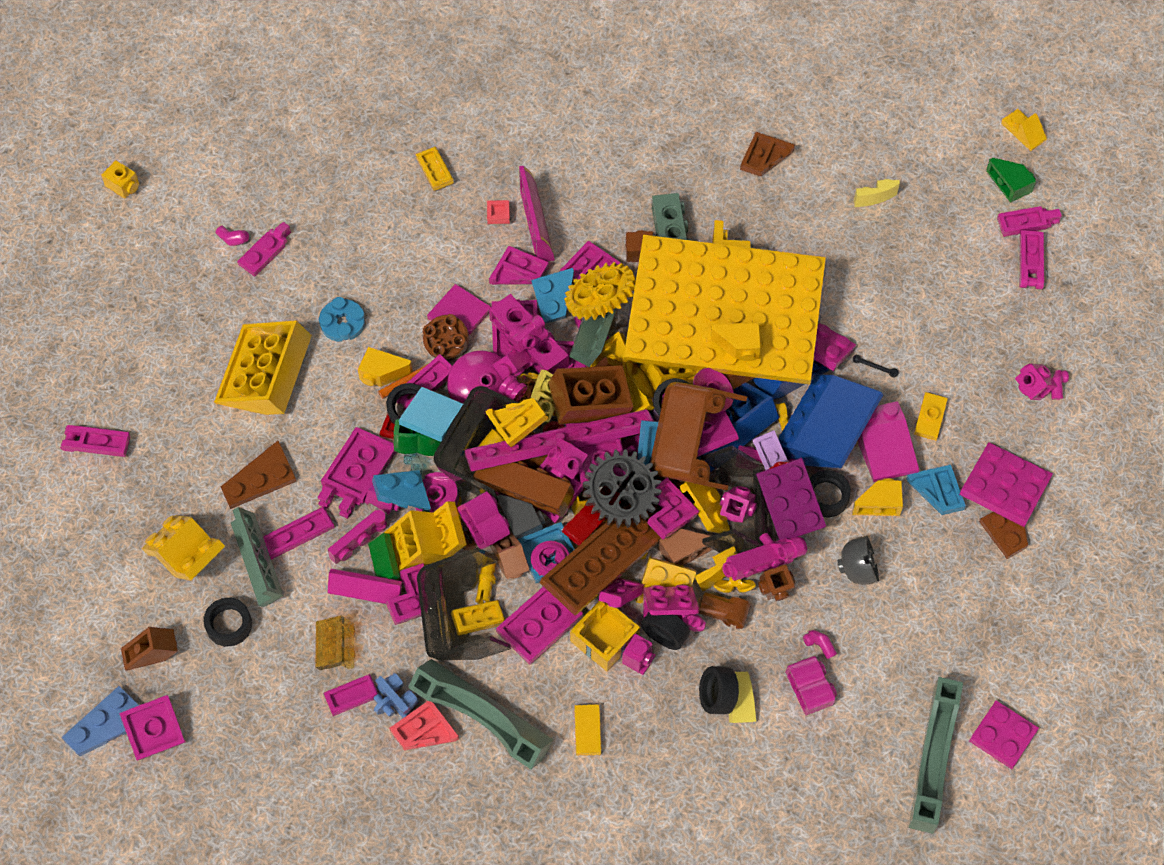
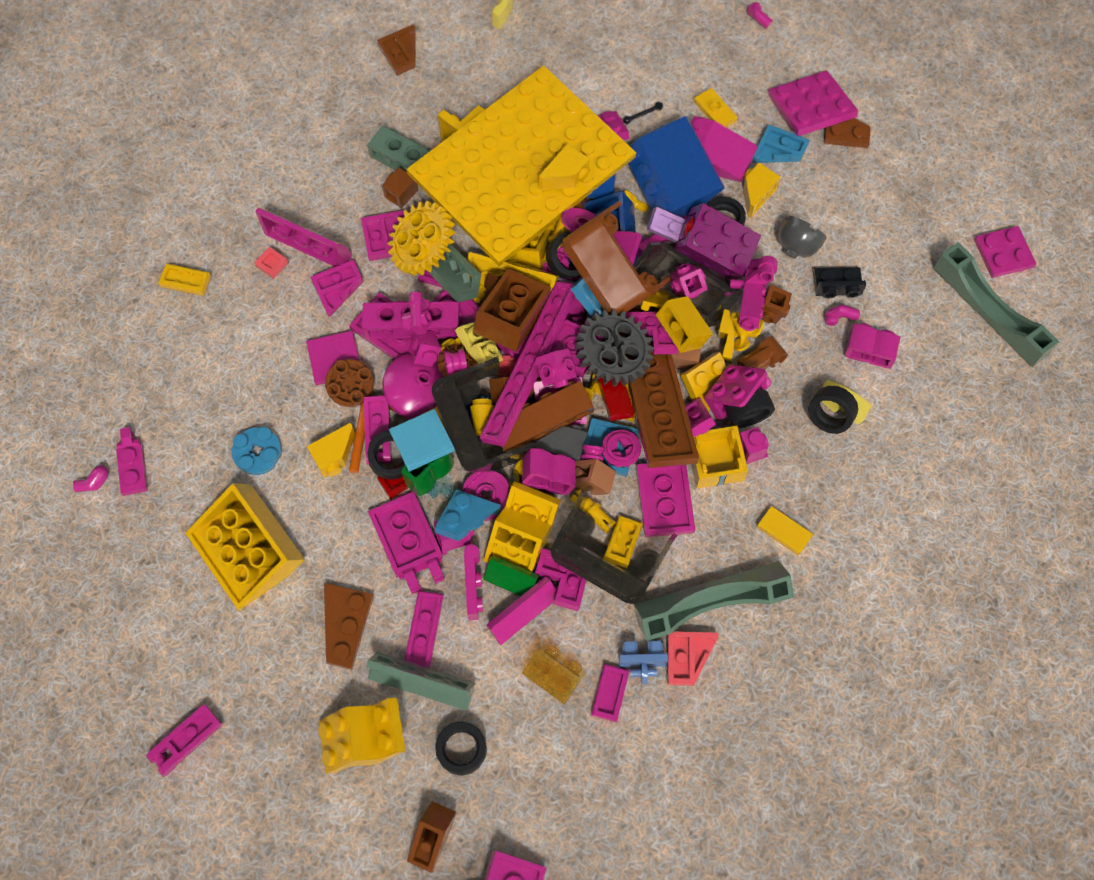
camera: 50 degrees left, 5 degrees up
(517, 419) = (492, 376): yellow wing -> none
(527, 540) = (592, 452): none -> dark pink bush
(551, 293) = (384, 277): dark azure wing -> none
(689, 524) = (684, 324): none -> yellow brick
(850, 621) = (838, 282): none -> black bracket
(1035, 381) = (756, 24): dark pink brick -> none

